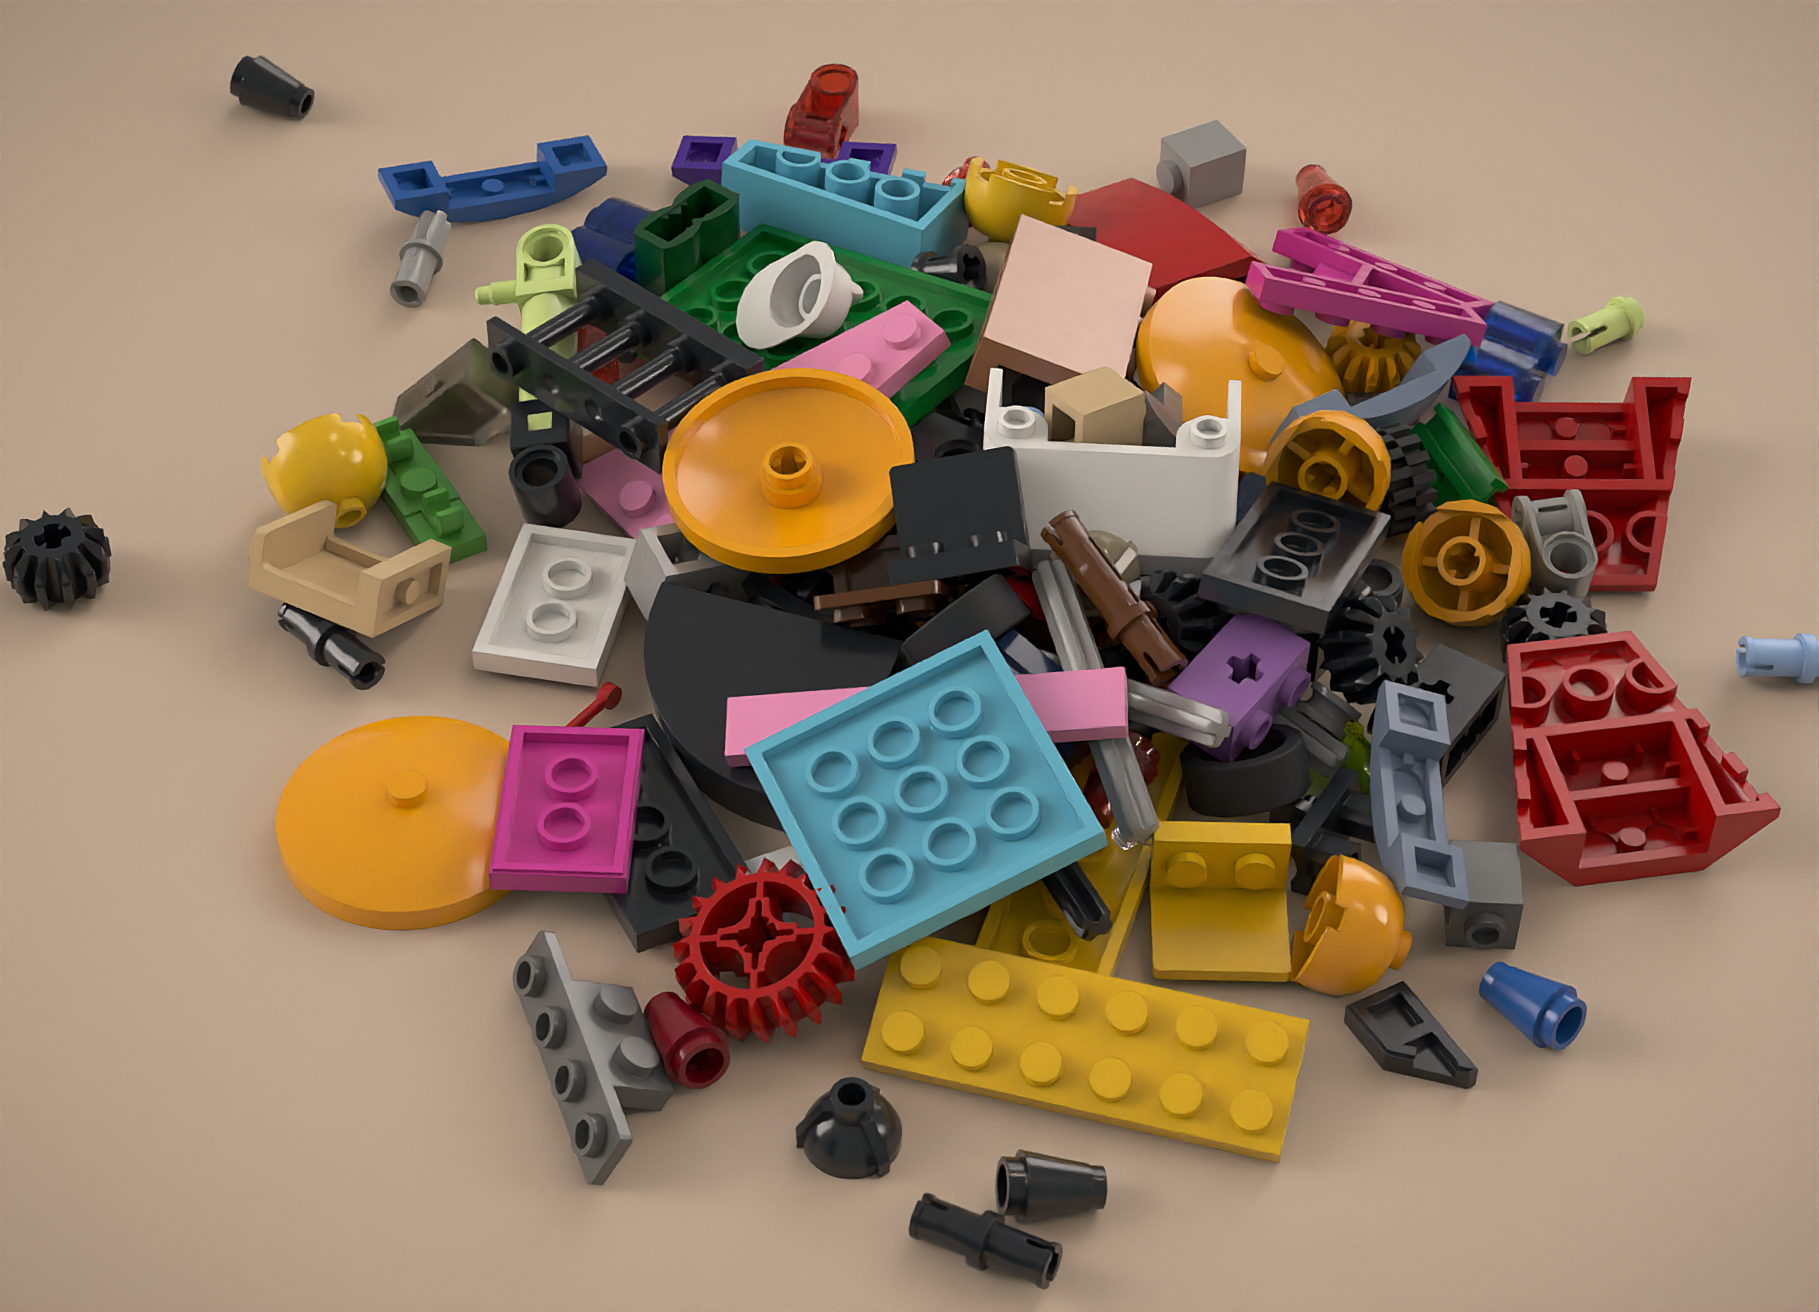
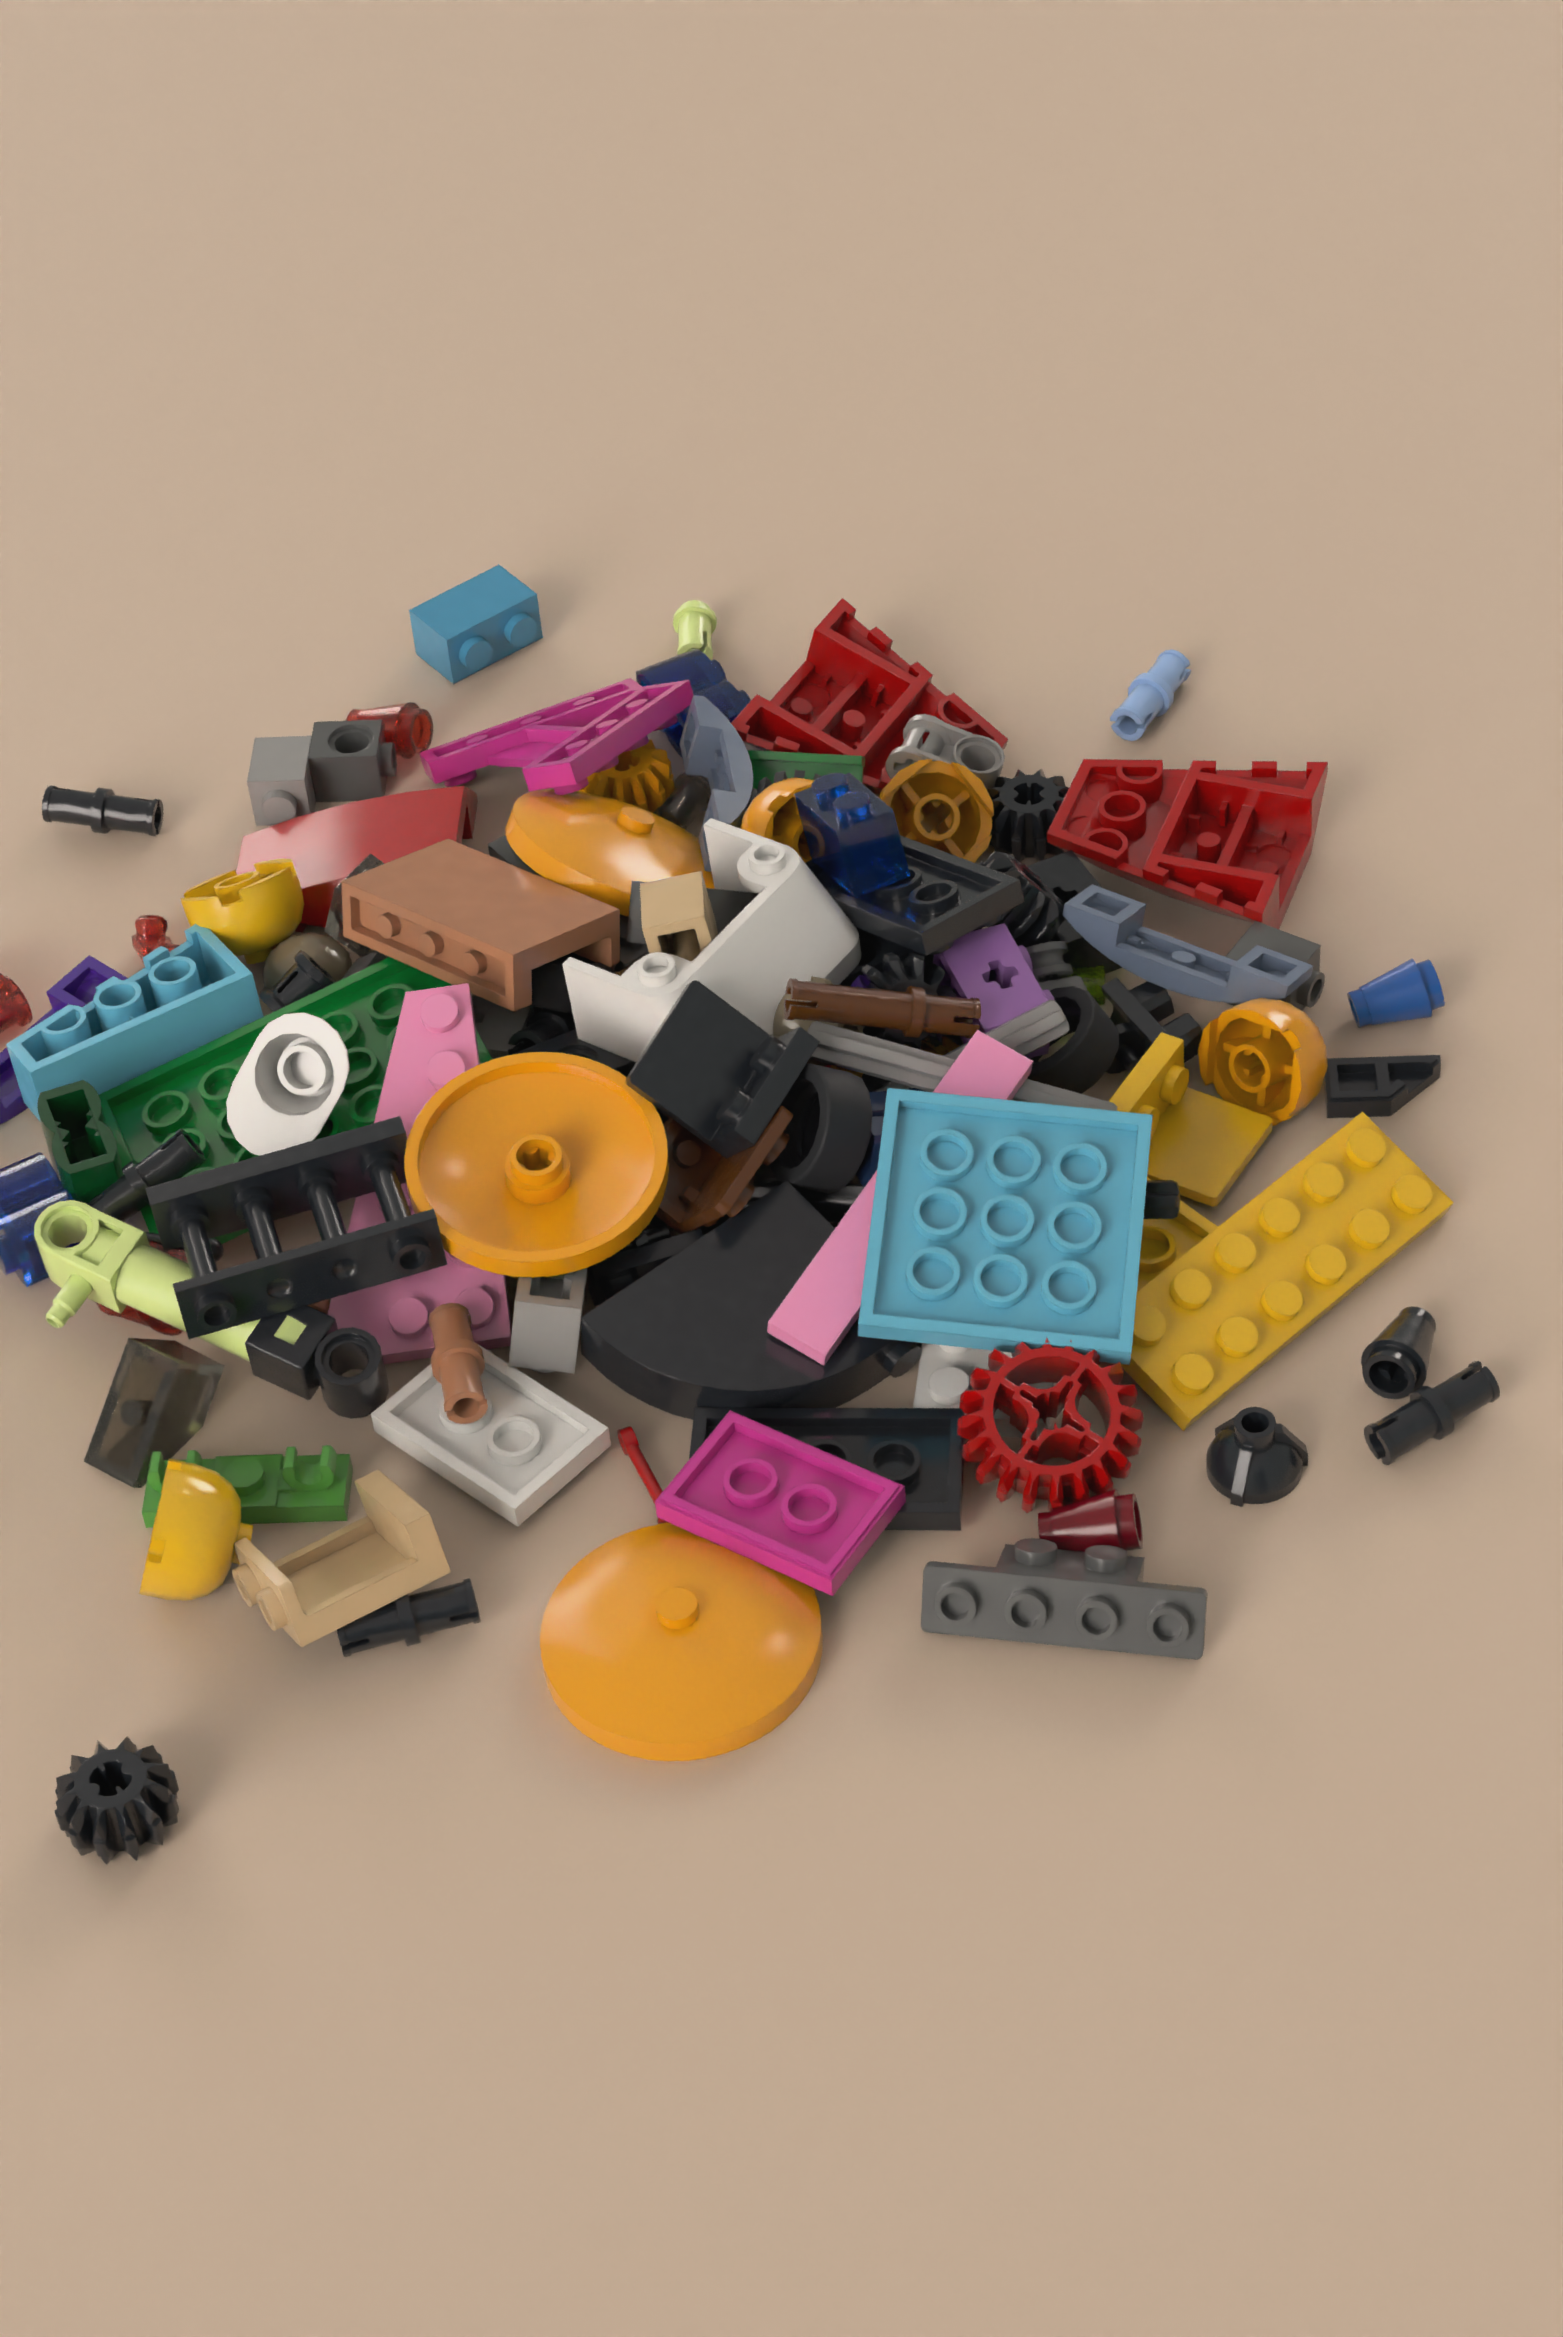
camera: 55 degrees left, 0 degrees up
(589, 542) = (457, 1363): none -> nougat pin
(676, 281) = (163, 1165): none -> black pin
(1089, 88) = (102, 810): none -> black pin
(1257, 190) = (350, 760): none -> dark grey brick
(1316, 485) = (851, 834): none -> clear blue brick
(1489, 188) = (476, 624): none -> dark azure brick

